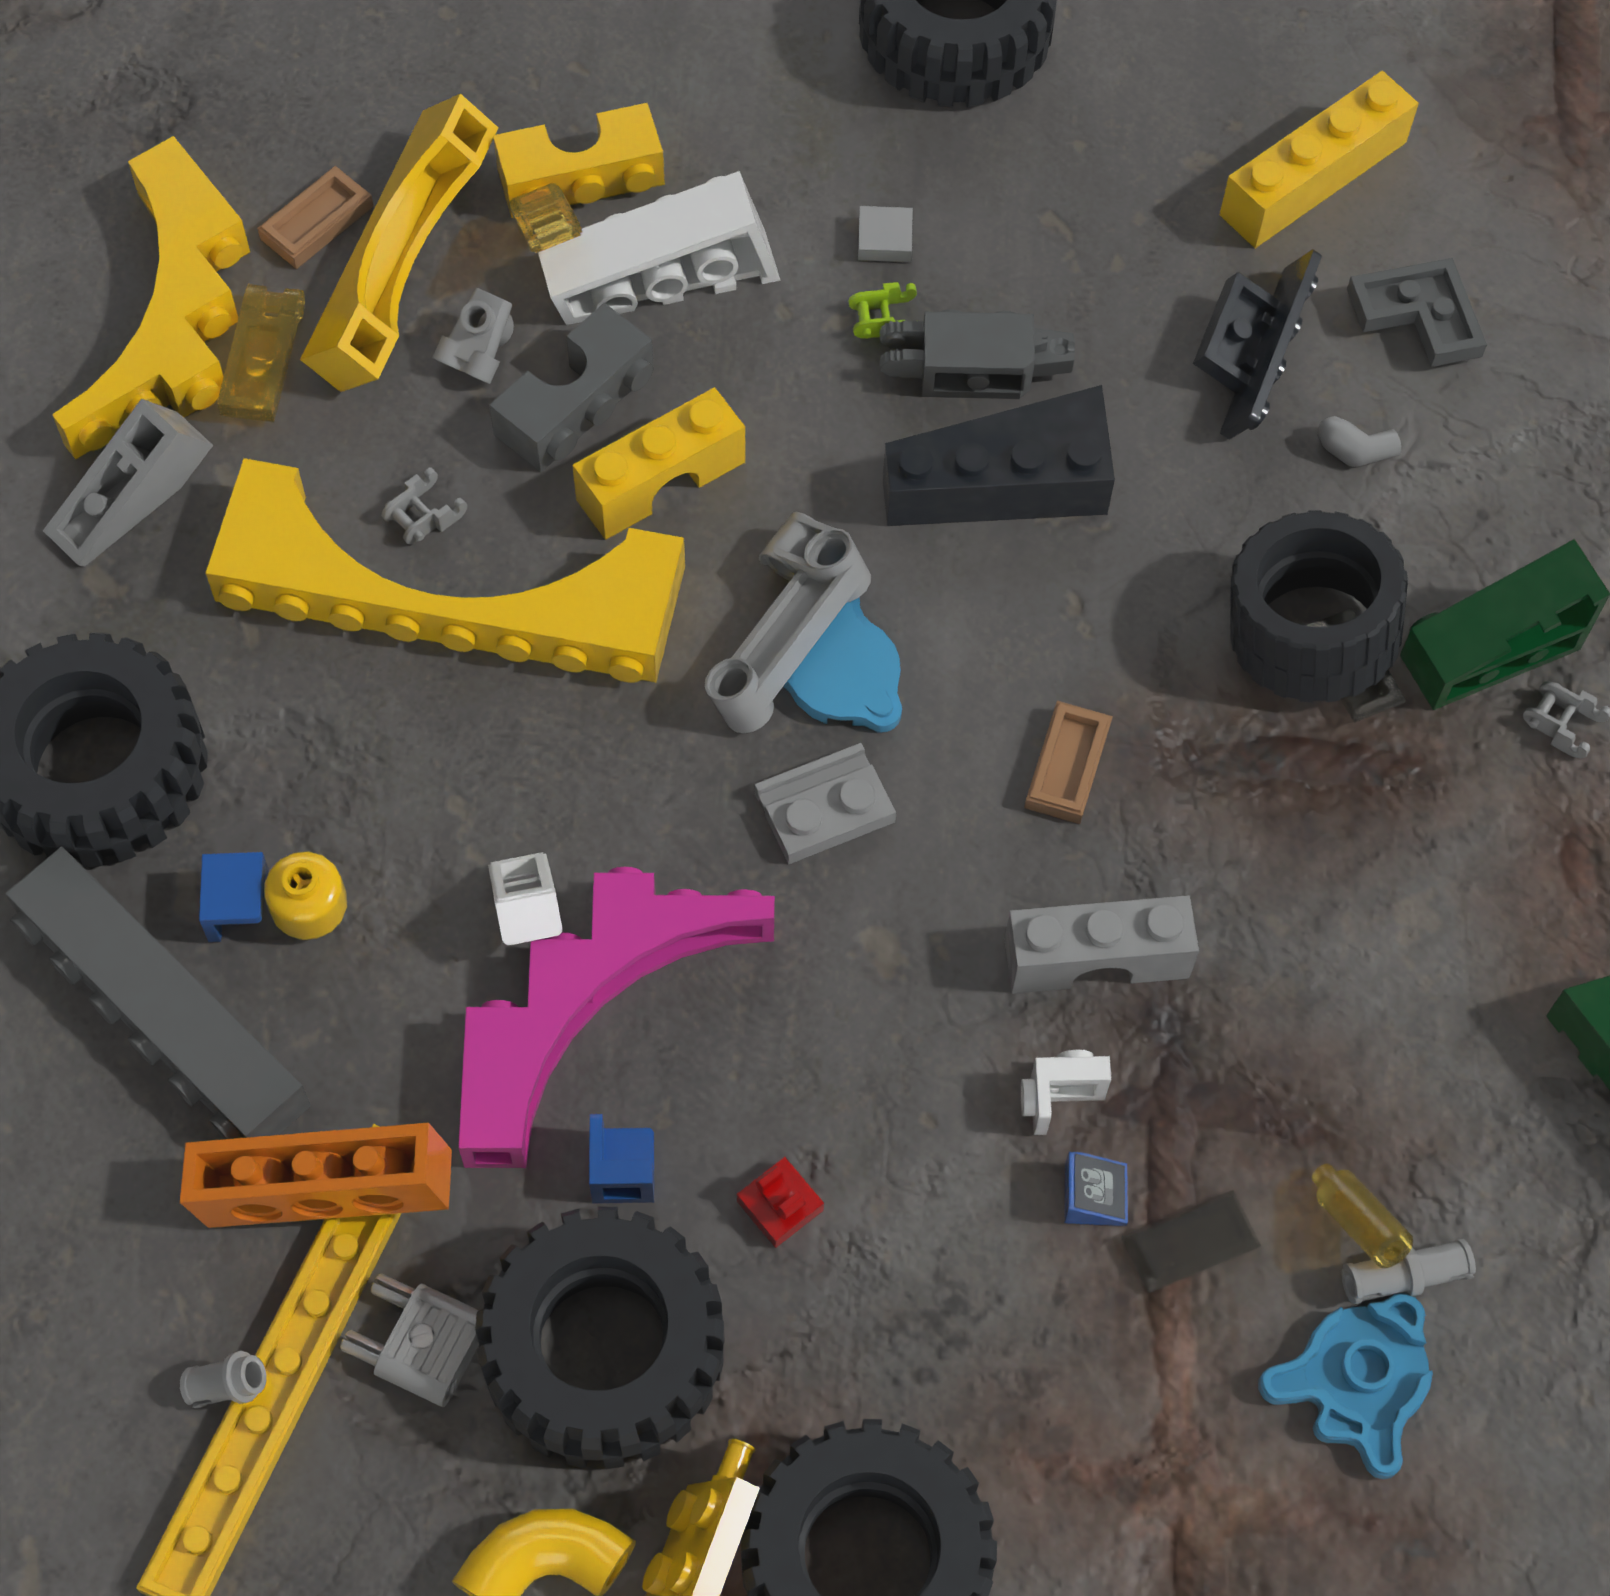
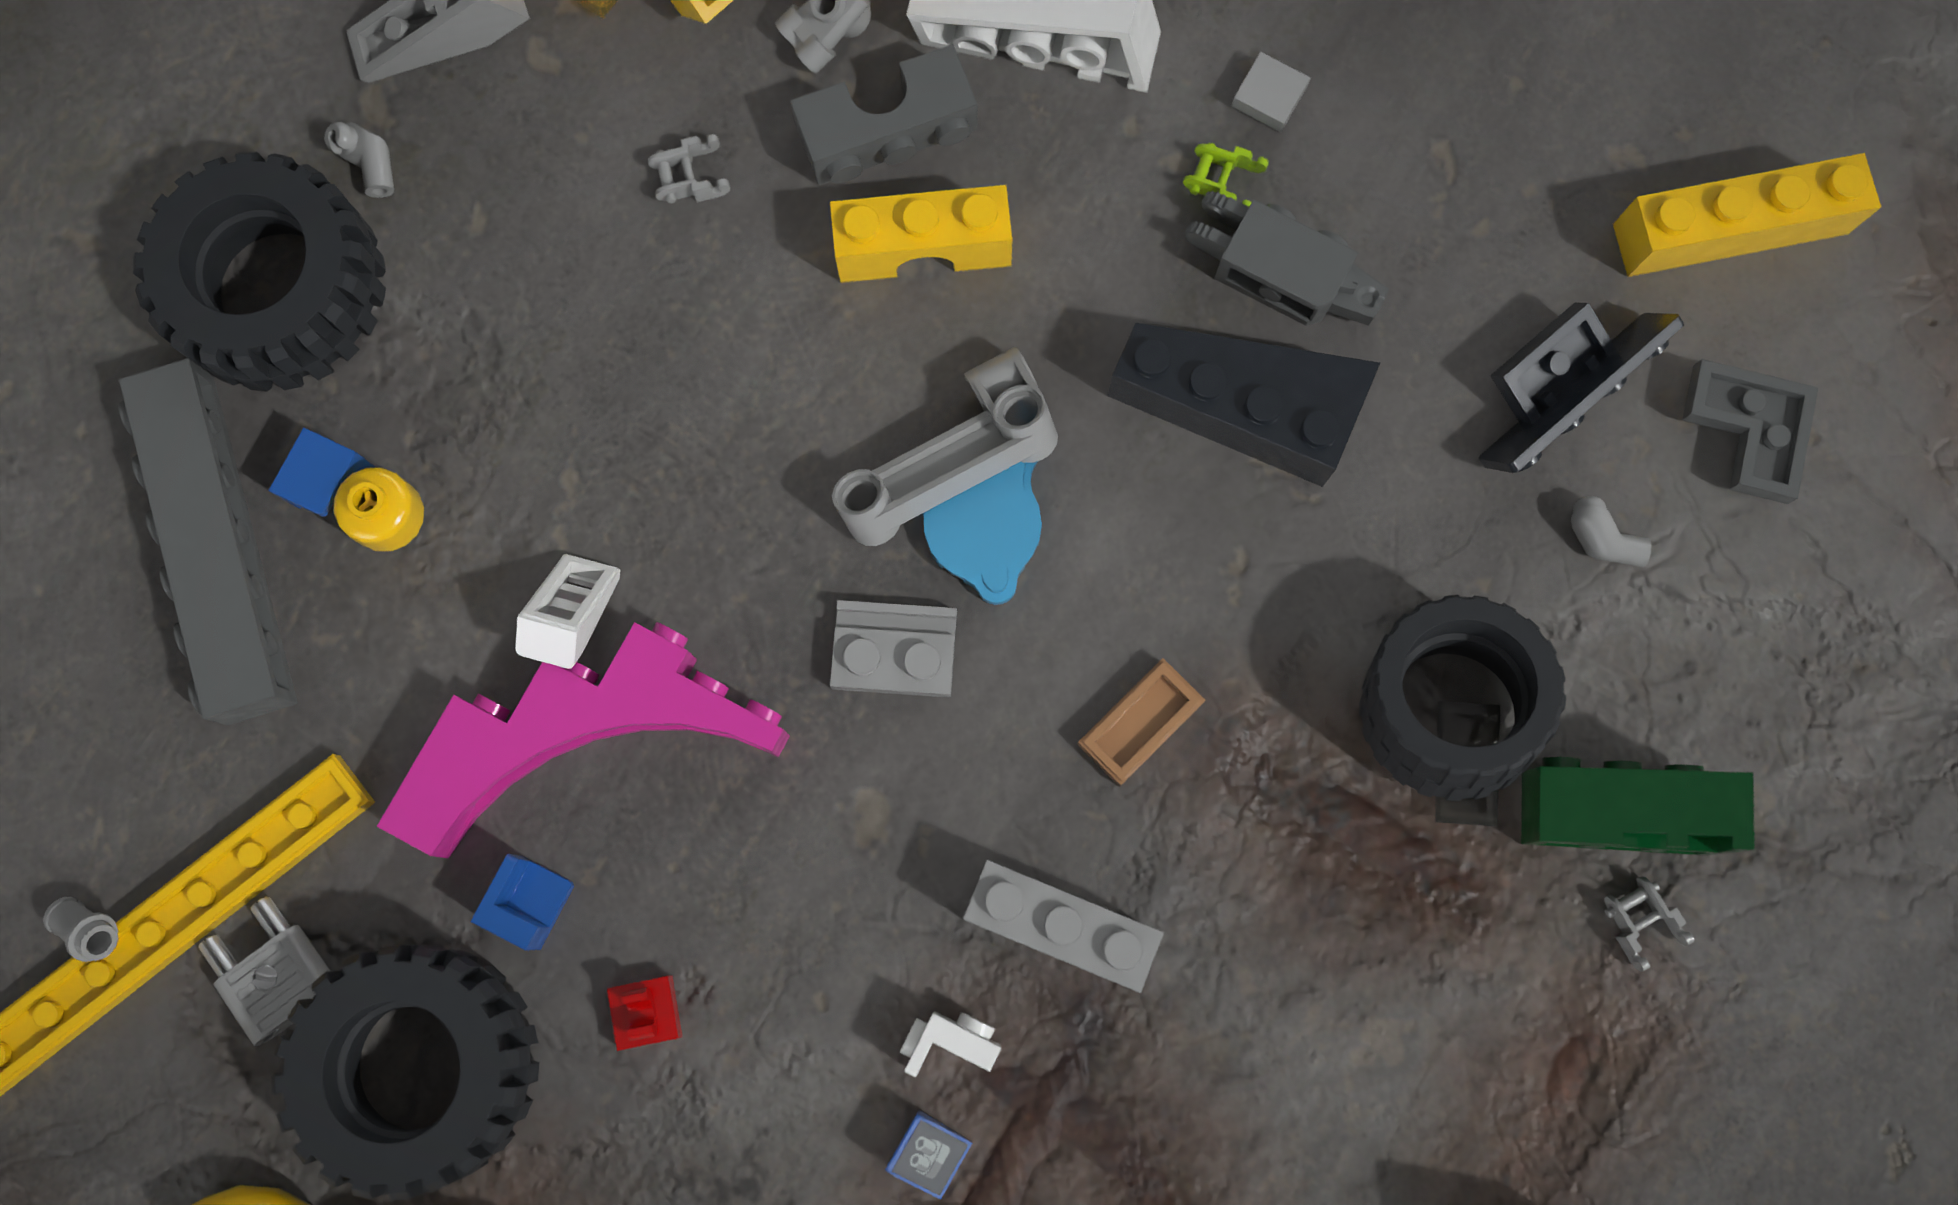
camera: 30 degrees right, 15 degrees up
(119, 619) = (365, 151): none -> light grey arm
(316, 1175) = (239, 792): orange brick -> none
(597, 620) = (788, 363): yellow arch -> none

